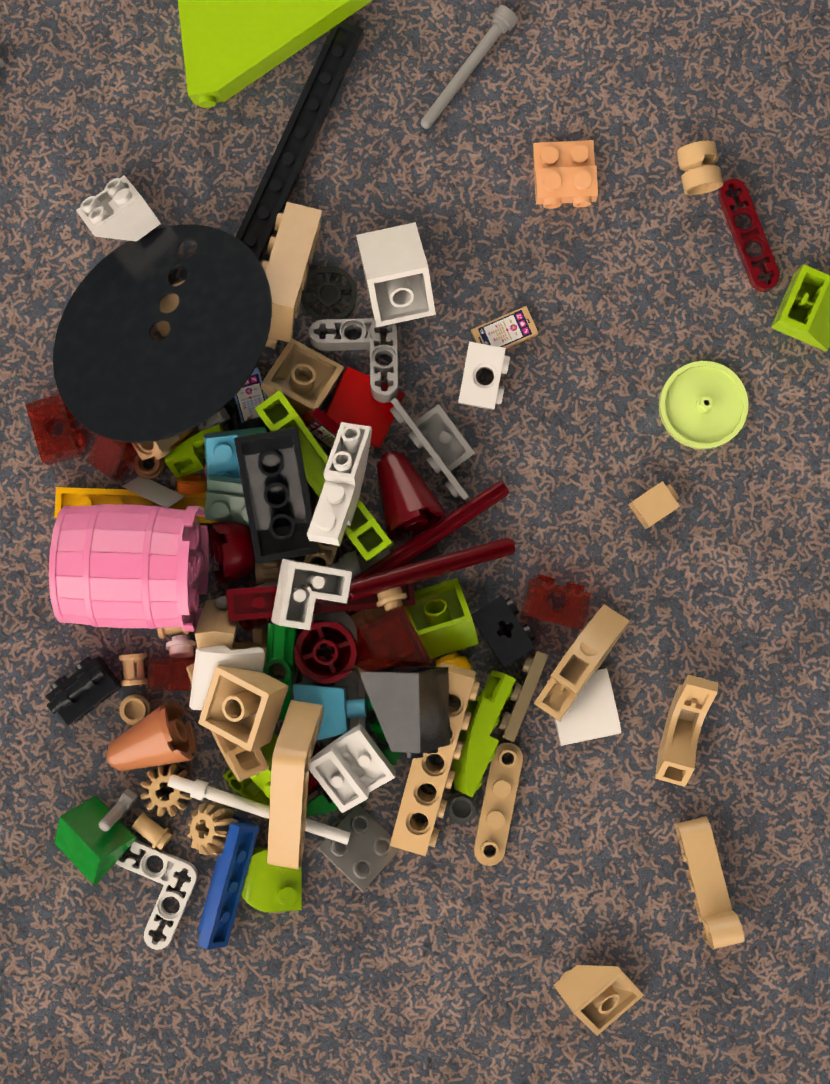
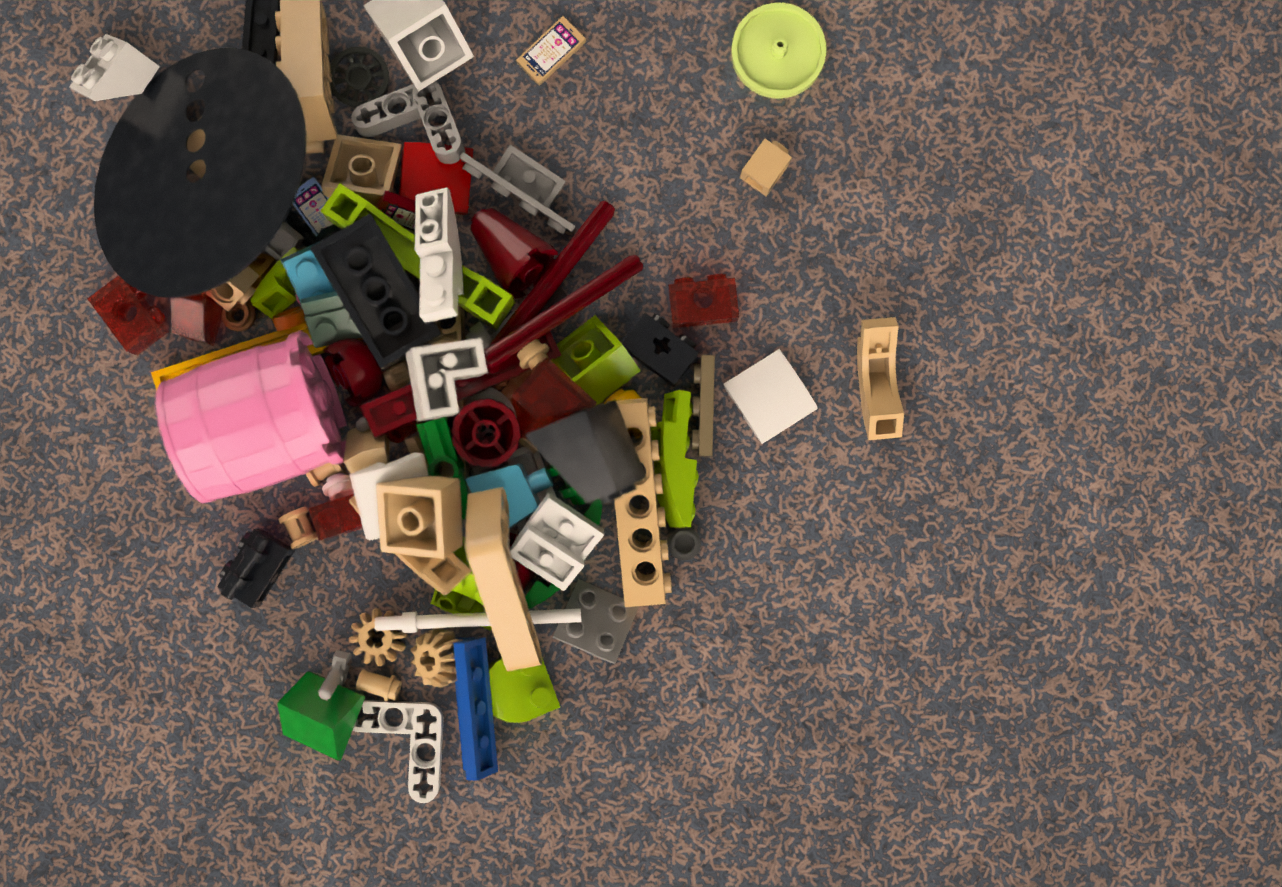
camera: 20 degrees left, 0 degrees up
(134, 708) = (316, 568): tan plate -> none
(153, 491) = (251, 339): white sticker -> none
(154, 741) = (346, 591): nougat cone -> none
(480, 357) = (539, 81): white brick -> none
(498, 804) = (720, 526): tan plate -> none
(581, 662) = (750, 351): tan slope -> none
(597, 994) = (892, 678): tan slope -> none
(707, 880) = (960, 524): tan beam -> none

